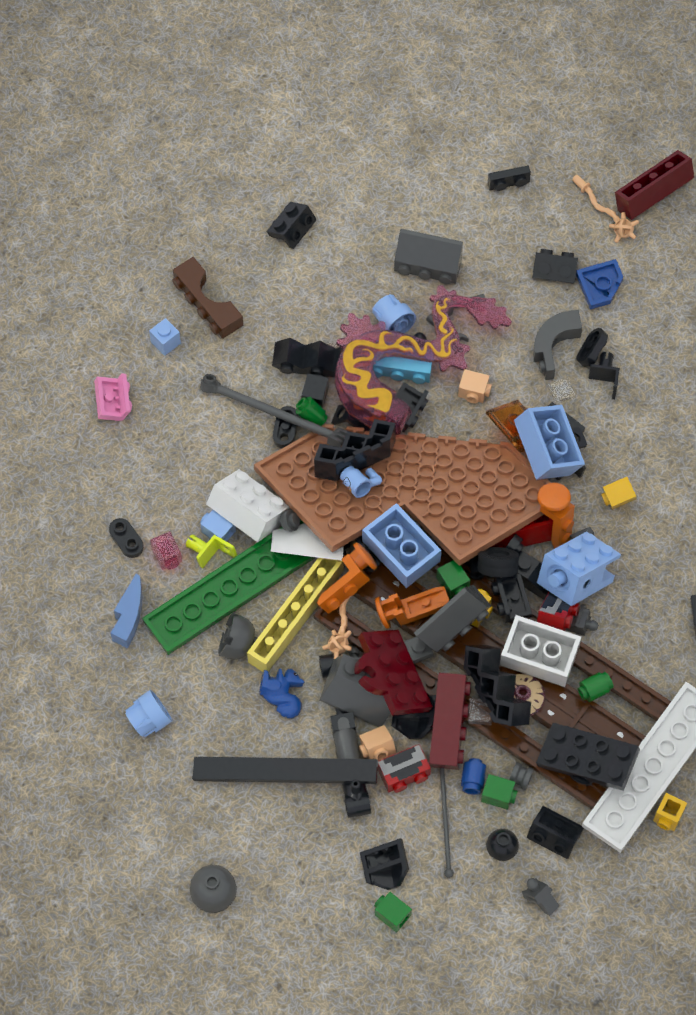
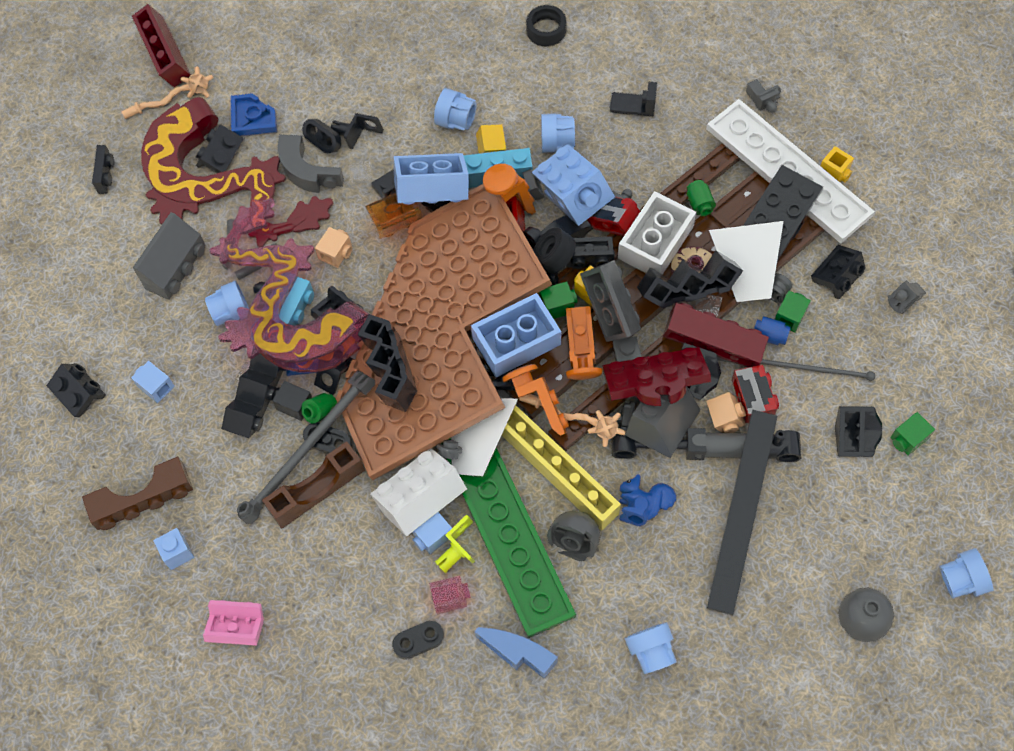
camera: 75 degrees left, 0 degrees up
(223, 414) = (294, 500): none -> reddish brown arch
(261, 966) = (966, 575): none -> light blue piece
(309, 279) = (152, 381): none -> light blue brick
(358, 482) = (425, 364): light blue piece -> none
(502, 844) = (845, 321): black brick -> none
(503, 245) = (162, 160): none -> dark red animal
(543, 740) = (756, 252): none -> white sticker
(592, 504) = (479, 163): none -> medium azure brick
(644, 548) = (557, 132): none -> light blue piece
(646, 453) = (454, 110): none -> light blue piece

